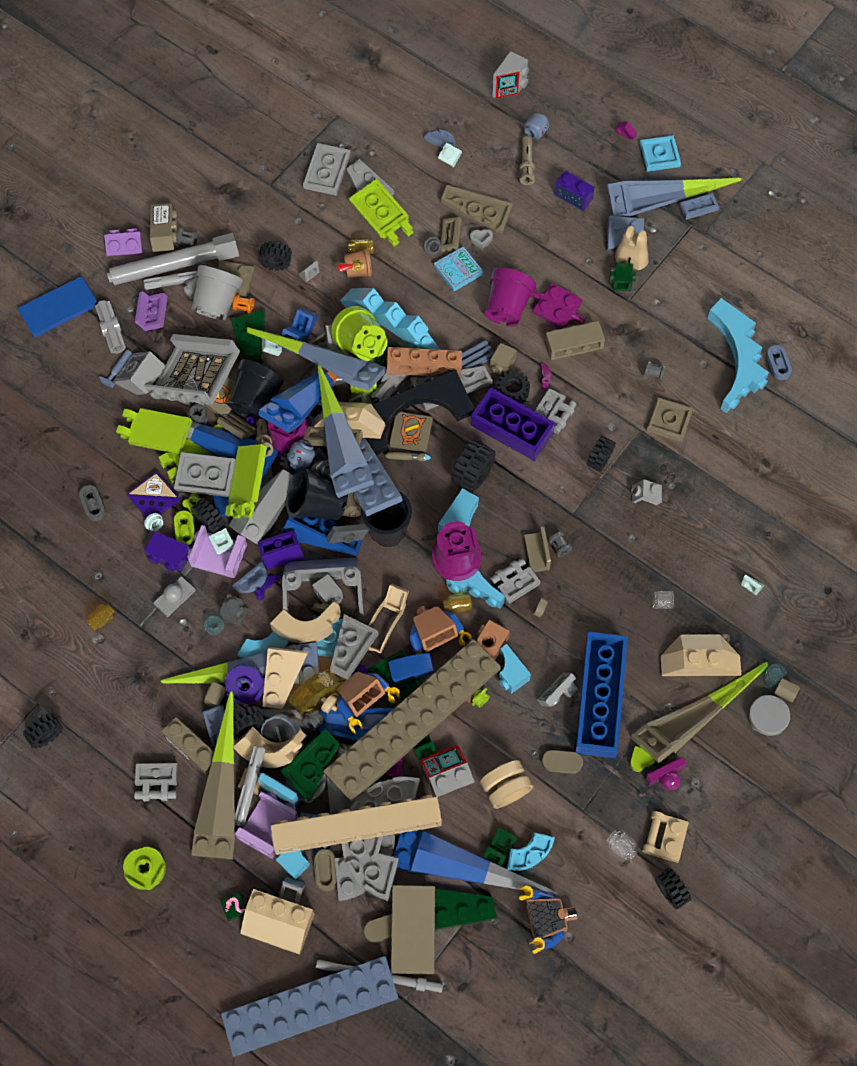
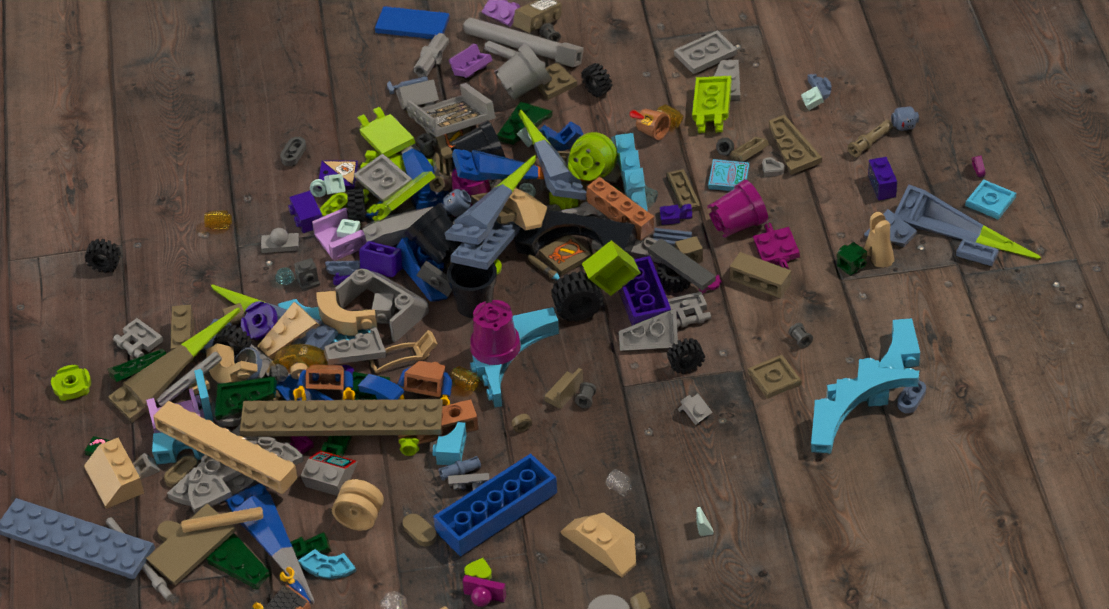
camera: 45 degrees right, 20 degrees down
(166, 509) = (334, 184): none -> light aqua plate
(185, 809) = (134, 366): none -> dark green wing
(243, 303) = (540, 98): orange bush -> none
(309, 272) = (613, 107): light grey slope -> none
(421, 891) = (222, 519): none -> tan axle
(438, 307) = (682, 189): none -> dark tan tile
(454, 334) = (673, 214): none -> dark purple plate
(485, 423) = (611, 268): none -> lime piece
(510, 76) = (920, 71): light grey slope -> none
(516, 376) = (681, 264): none -> dark grey tile
(518, 585) = (524, 395): light grey plate -> none
(536, 684) = (460, 467): none -> sand blue pin
(554, 453) = (651, 333): none -> light grey wing
(674, 730) = (521, 566): dark tan plate -> none
(751, 424) = (849, 393): none -> medium azure arch
(773, 675) = (645, 585): clear light blue brick -> none

